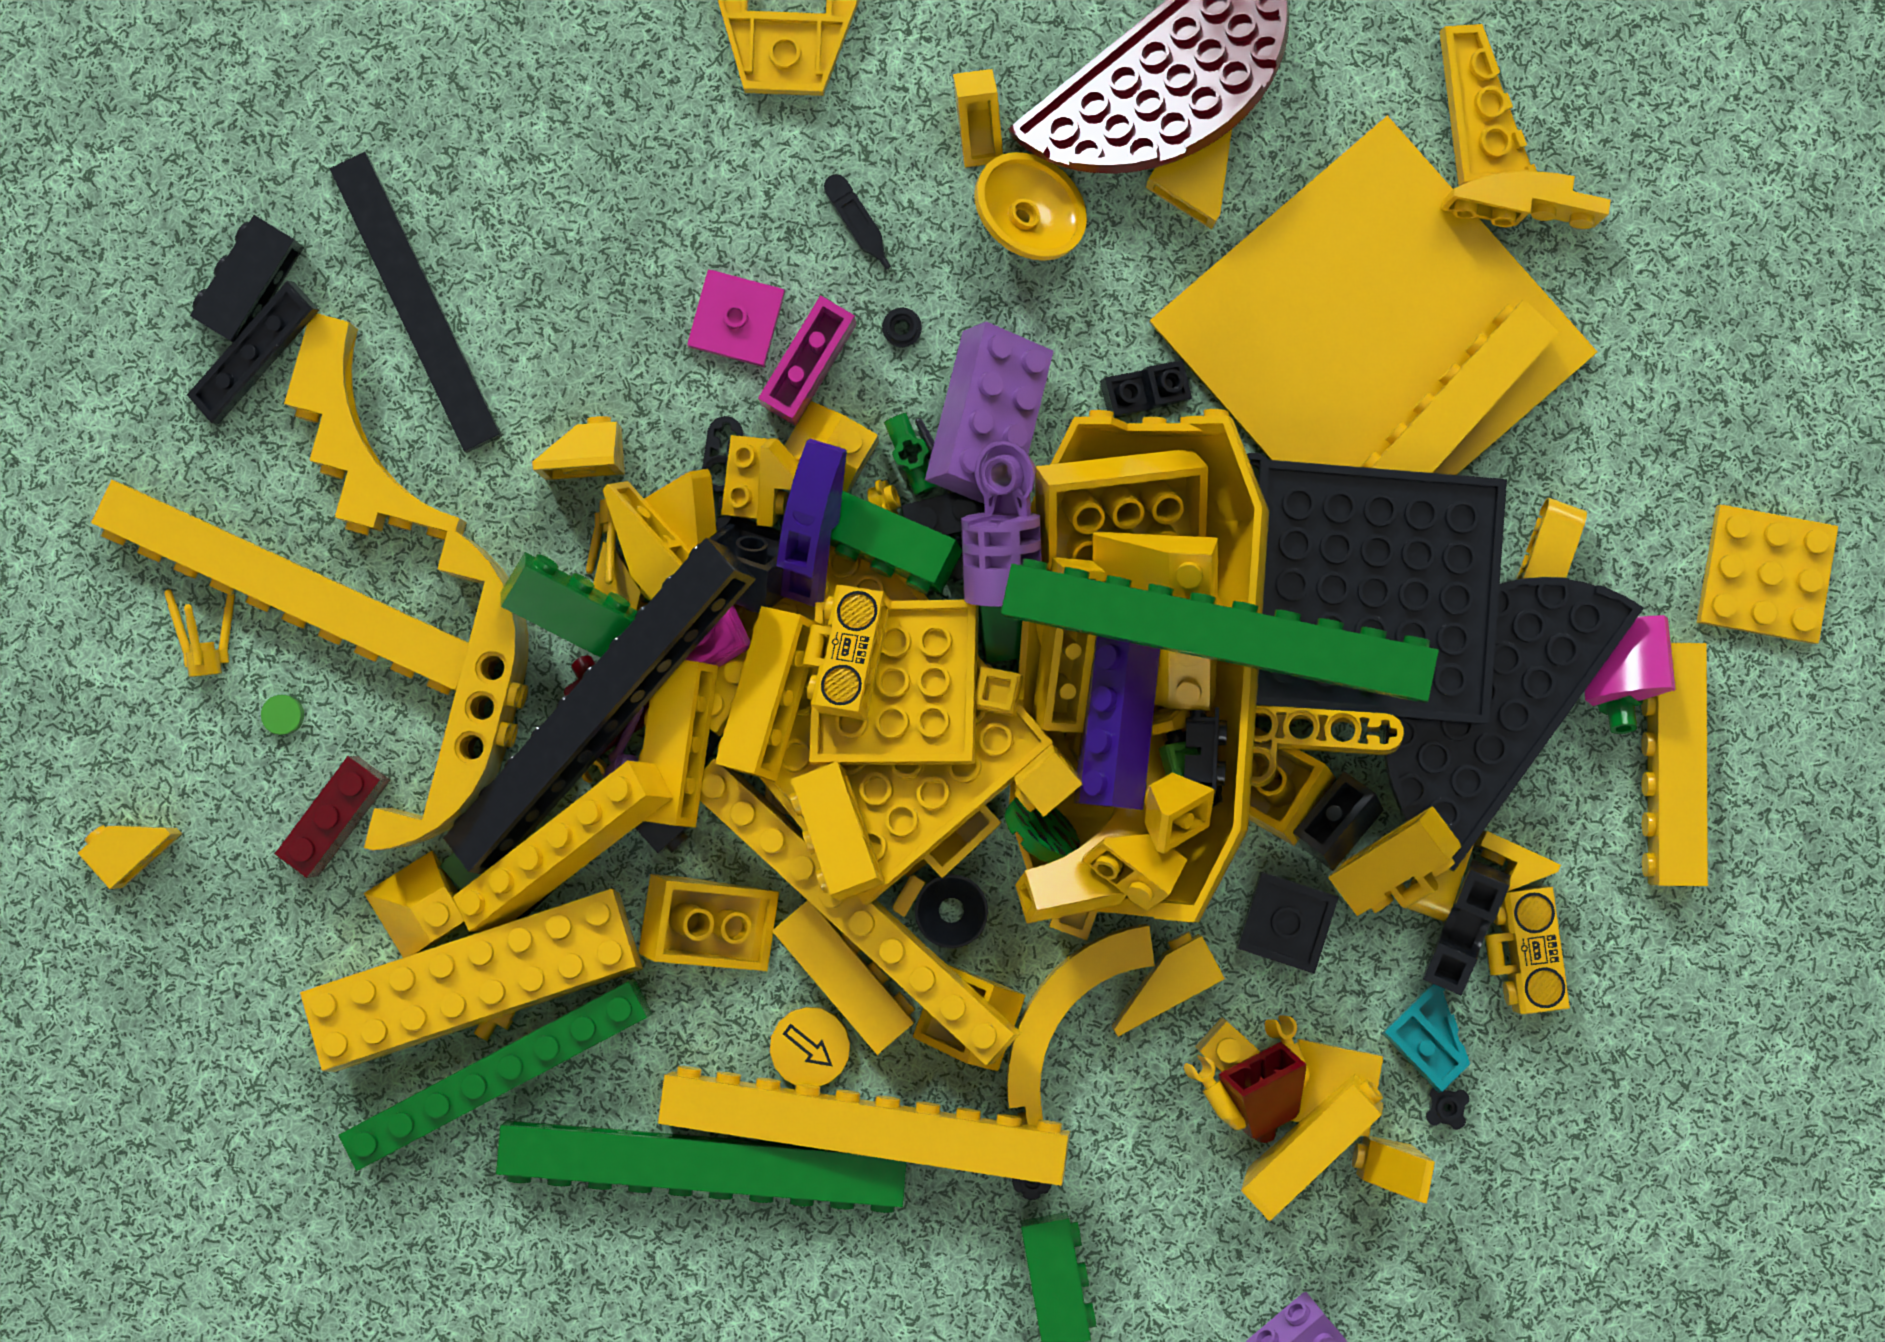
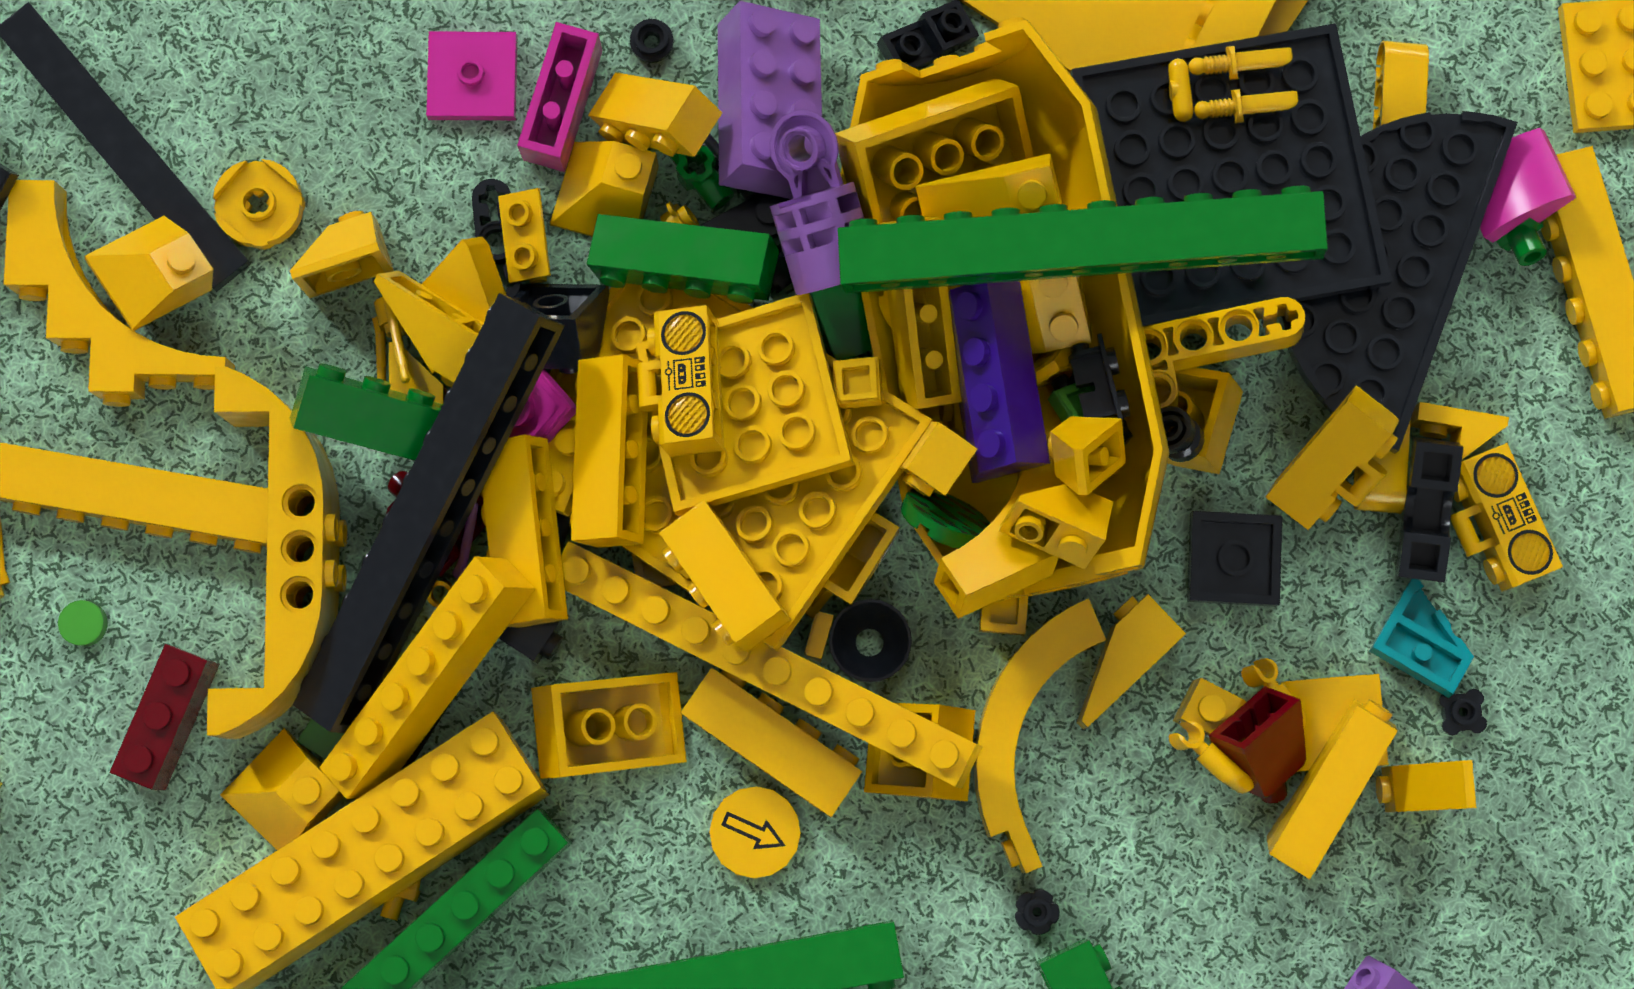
camera: 20 degrees left, 5 degrees down
(413, 424) = (151, 271): none -> yellow slope
(498, 385) = (262, 228): none -> yellow plate
(775, 474) = (556, 220): yellow slope -> none
(808, 521) = (606, 257): dark purple slope -> none
(864, 1126) = (838, 900): yellow brick -> none
(884, 402) = (654, 114): none -> yellow brick
(1269, 812) = (1186, 438): none -> black wheel
(1338, 821) = (1259, 433): black brick -> none
(1405, 492) = (1233, 62): none -> yellow piece

